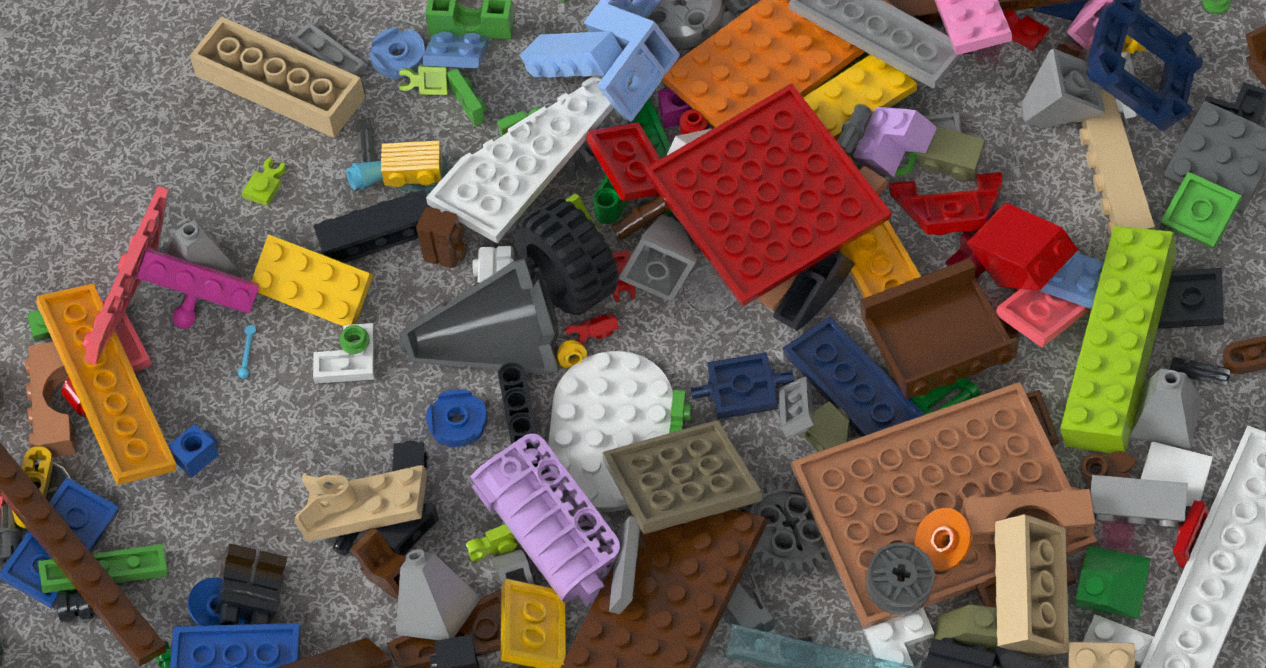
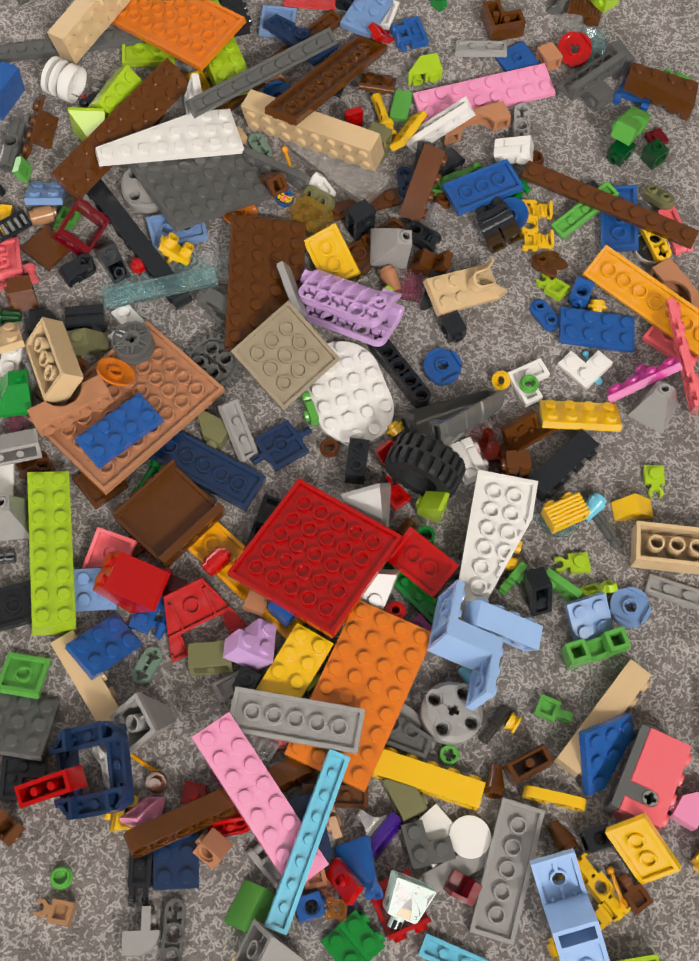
camera: 145 degrees right, 10 degrees up
(181, 422) = (597, 305): none -> yellow plate
(201, 566) = (537, 240): none -> yellow piece
(203, 514) = (548, 263): none -> reddish brown plate
(207, 394) = (596, 330): none -> blue plate
(225, 474) = (553, 288): none -> lime plate
(258, 341) = (585, 373): none -> white plate
(264, 442) = (543, 314): none -> blue plate
(318, 156) = (632, 508): none -> yellow slope
(372, 618) = (424, 236): none -> black piece
(386, 370) = (496, 377): none -> yellow plate
(413, 282) = (522, 433): none -> reddish brown bracket
(431, 121) = (576, 563): none -> lime plate
(438, 541) = (412, 287): none -> clear pink plate
(459, 274) = (488, 445): none -> clear red hinge
(460, 565) = (390, 277): none -> nougat cone
(500, 94) = (538, 591): none -> black slope
(648, 323) = (356, 461): none -> black brick
(675, 355) = (329, 442): none -> reddish brown plate
(854, 128) = (279, 629): dark grey axle -> none
(898, 252) = (216, 561): none -> red brick
(919, 98) = (246, 679): none -> black brick
(968, 457) = (119, 430): none -> blue plate
(1033, 176) = (151, 669): none -> sand green beam
(1088, 202) = (103, 646): none -> blue plate
(1200, 65) = (50, 786): none -> red brick

